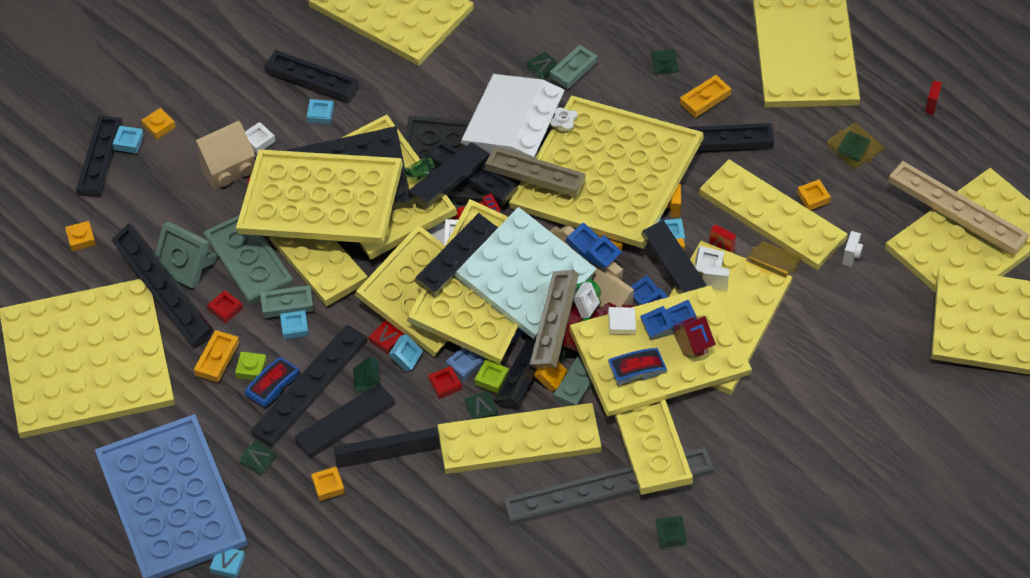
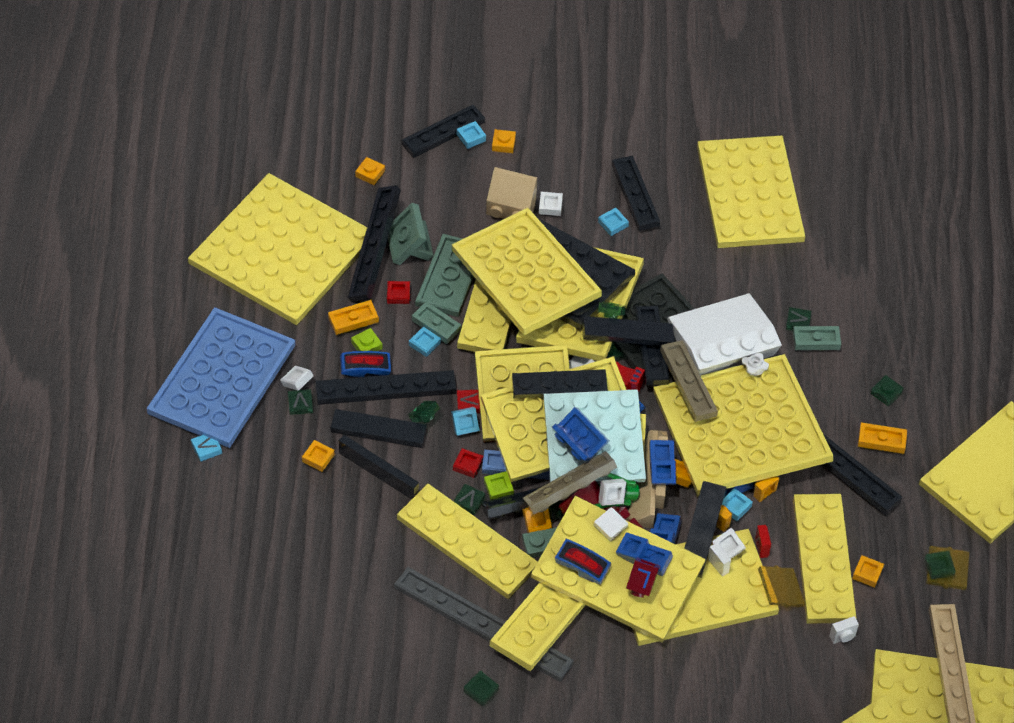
camera: 45 degrees right, 0 degrees up
(232, 442) = (296, 378): none -> white tile
(523, 274) = (580, 434): none -> blue bracket

